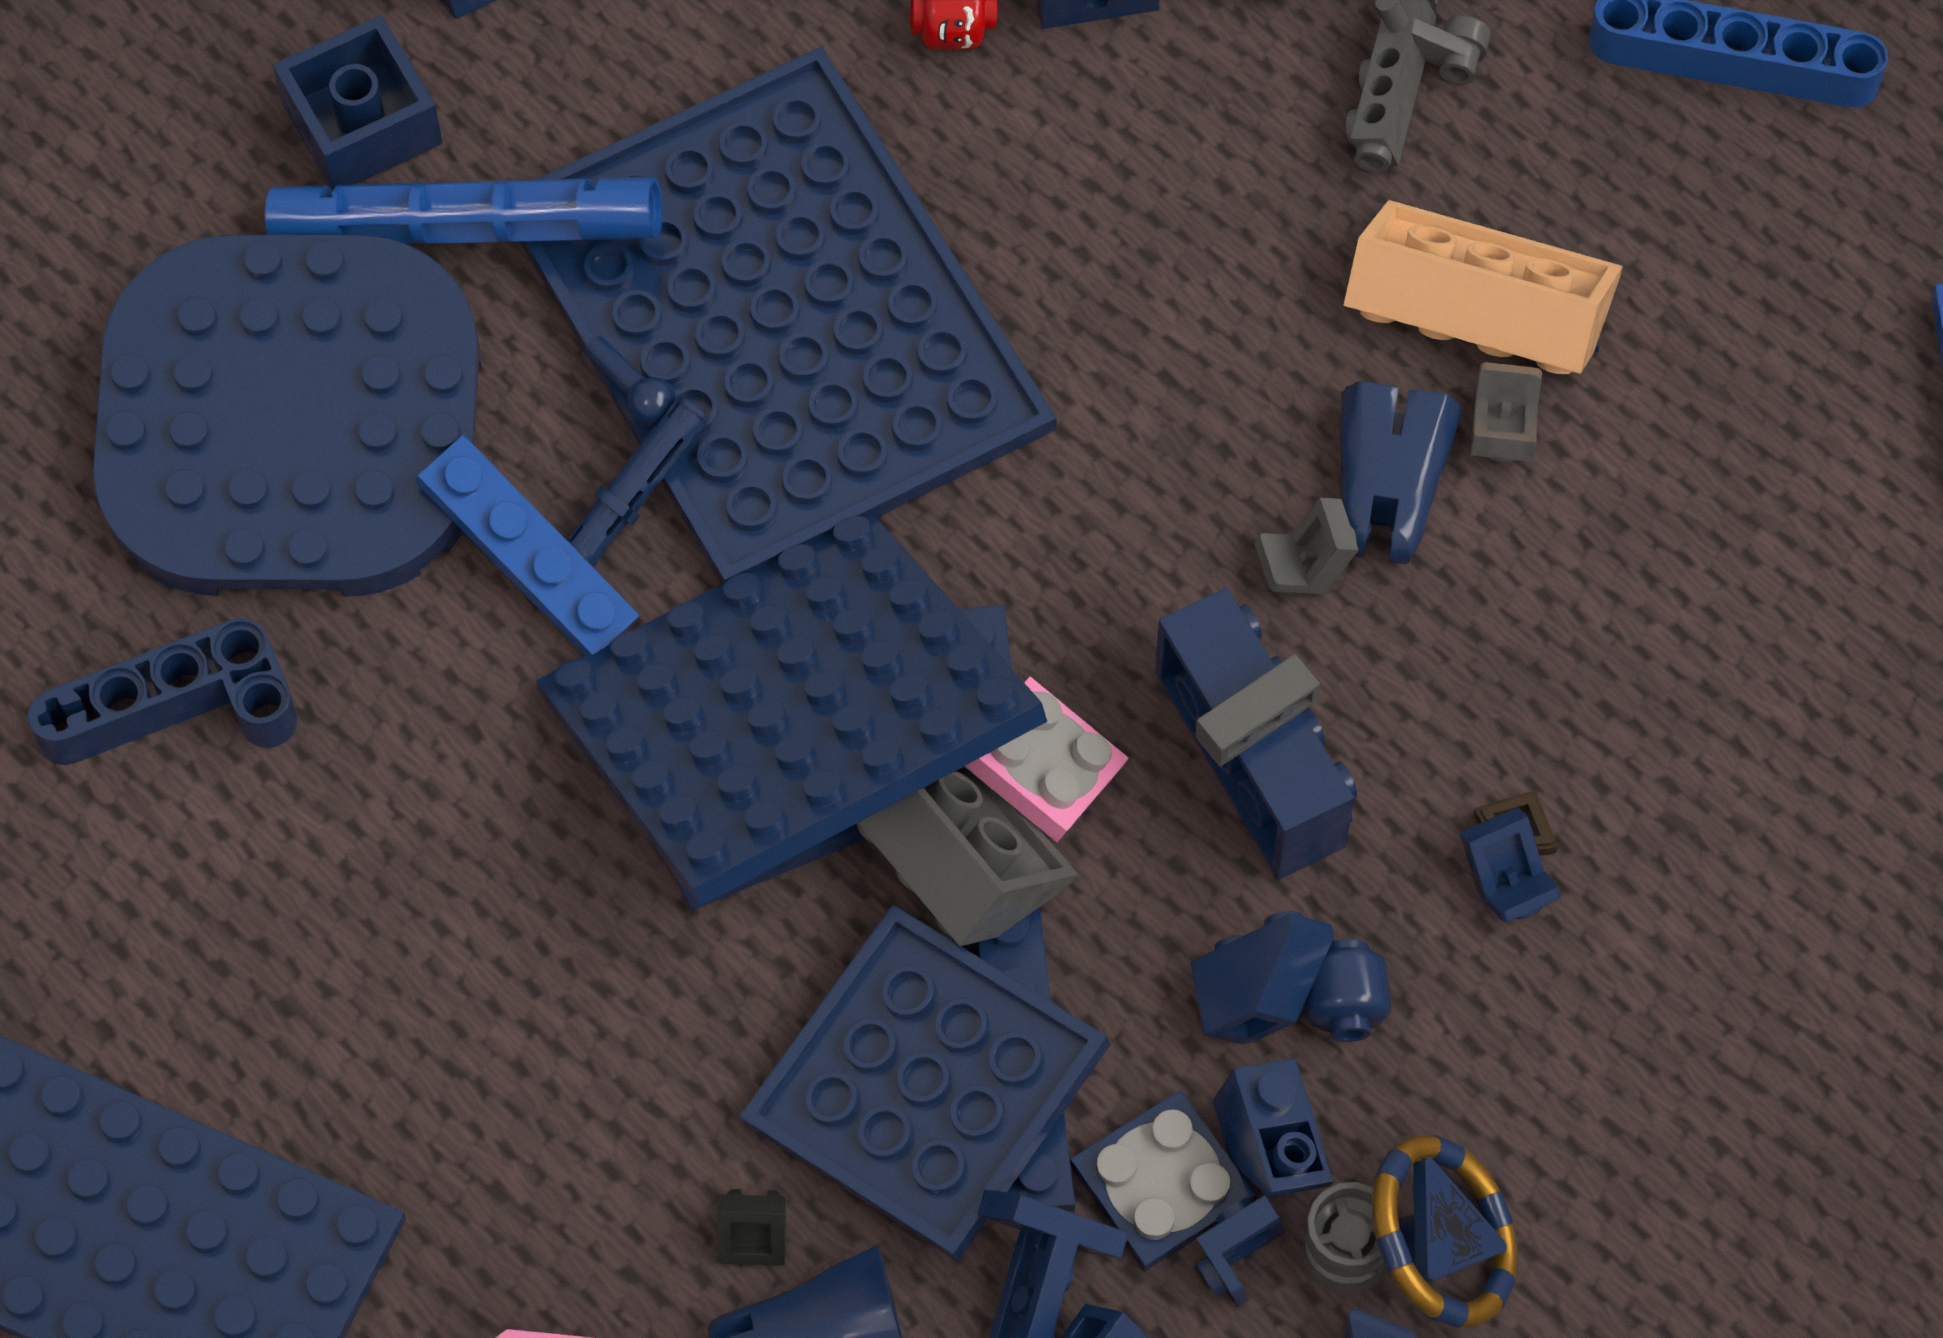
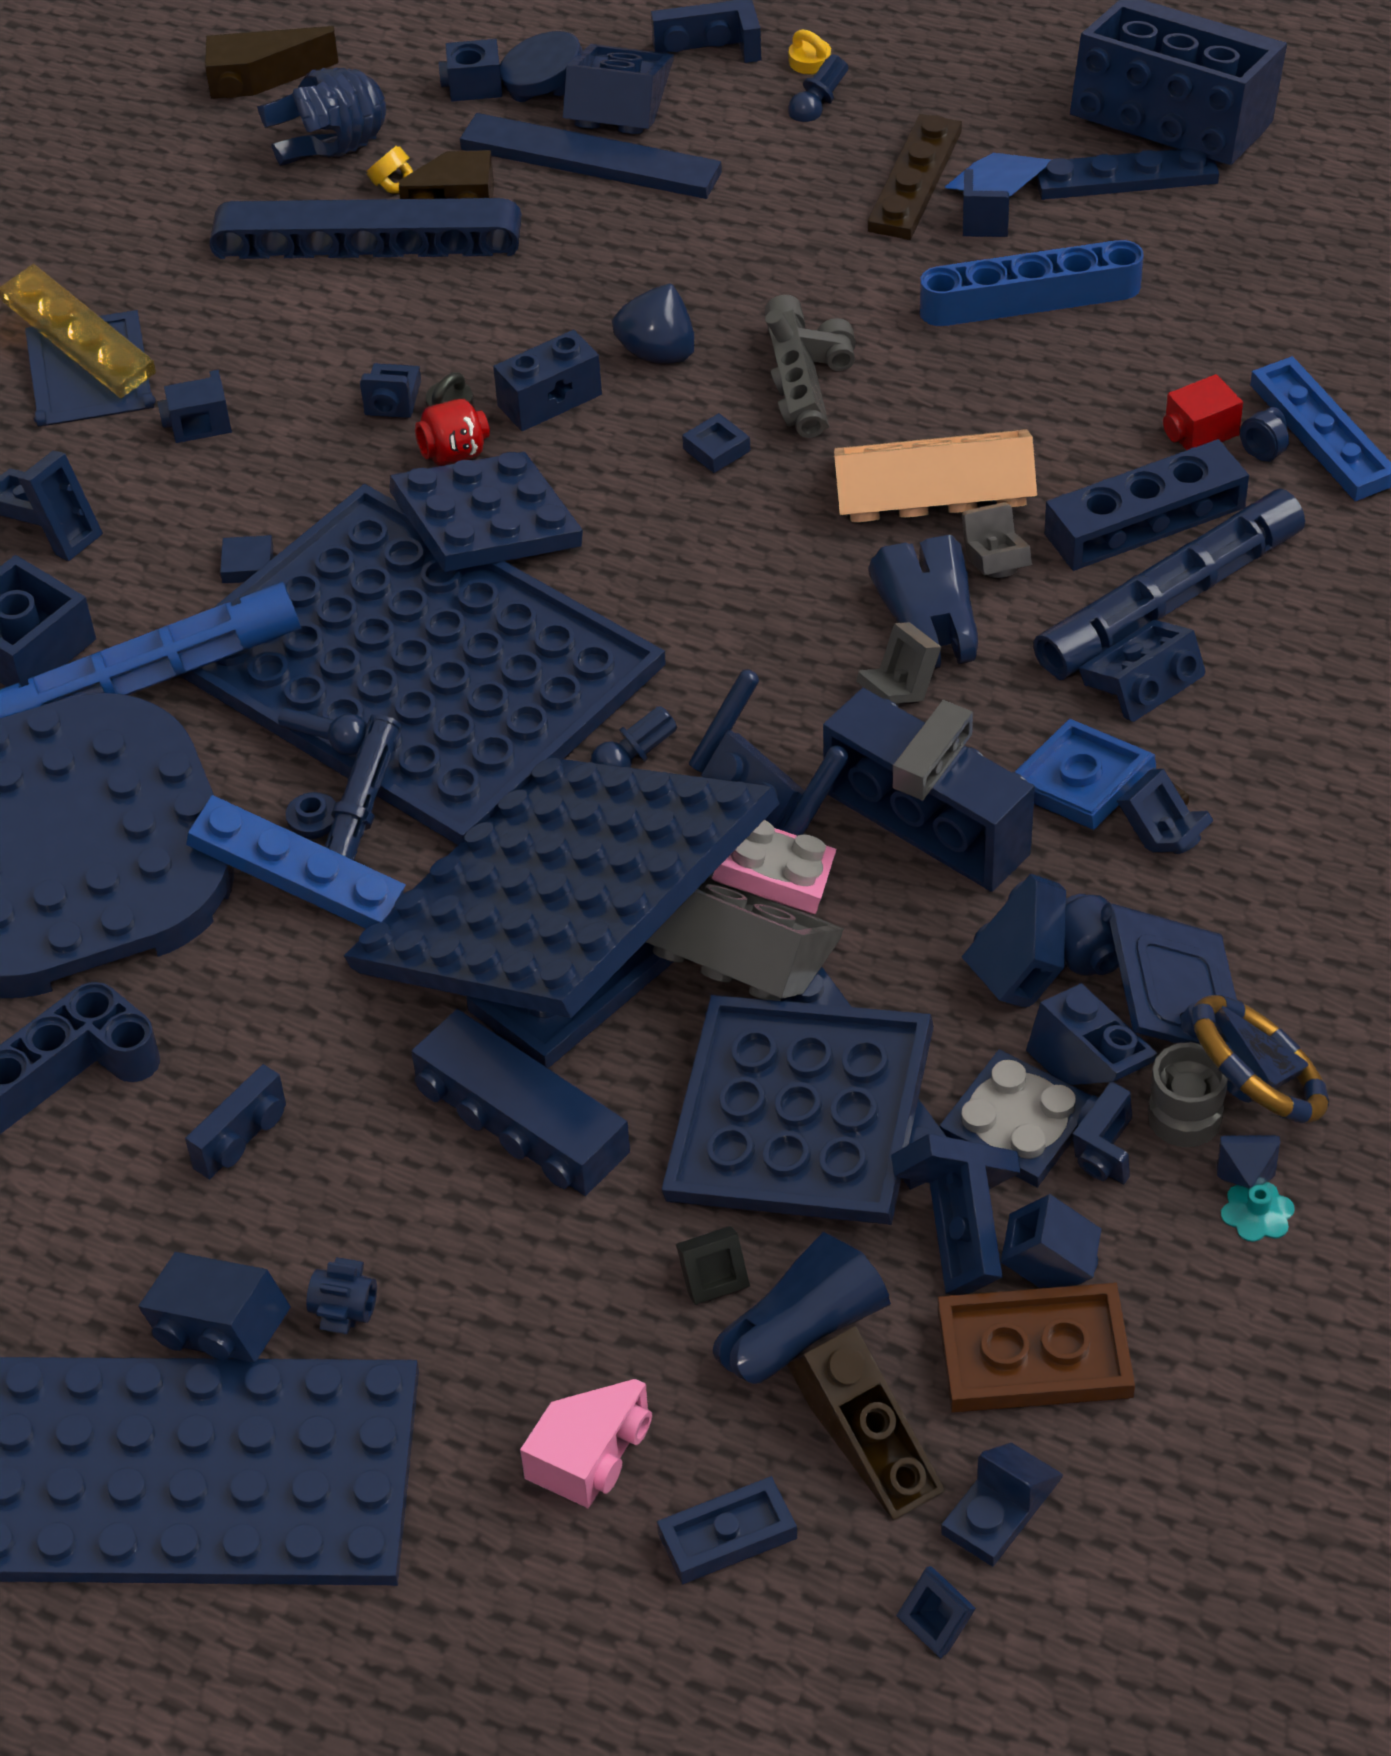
camera: 20 degrees left, 15 degrees down
(219, 1071) = (214, 1307): none -> dark blue piece
(314, 861) = (226, 1131): none -> dark blue plate
(356, 1106) = (341, 1295): none -> dark blue gear
(580, 495) = (310, 824): none -> dark blue plate
(639, 947) = (520, 1103): none -> dark blue brick
(650, 94) = (244, 557): none -> dark blue tile
(940, 536) = (637, 740): none -> dark blue axle
(941, 140) = (485, 511): none -> dark blue plate
(1075, 631) = (732, 758): none -> dark blue plate
(1253, 140) = (716, 443): none -> dark blue plate
(1406, 1077) = (1166, 971): none -> dark blue container
(1450, 768) = (1084, 772): none -> blue tile
(1595, 654) = (1146, 667): none -> dark blue bracket
(1682, 550) = (1169, 583): none -> dark blue piece
(1683, 448) = (1146, 504): none -> dark blue brick
(1843, 324) = (1203, 413): none -> red brick
(1904, 384) = (1265, 434): none -> dark blue tile

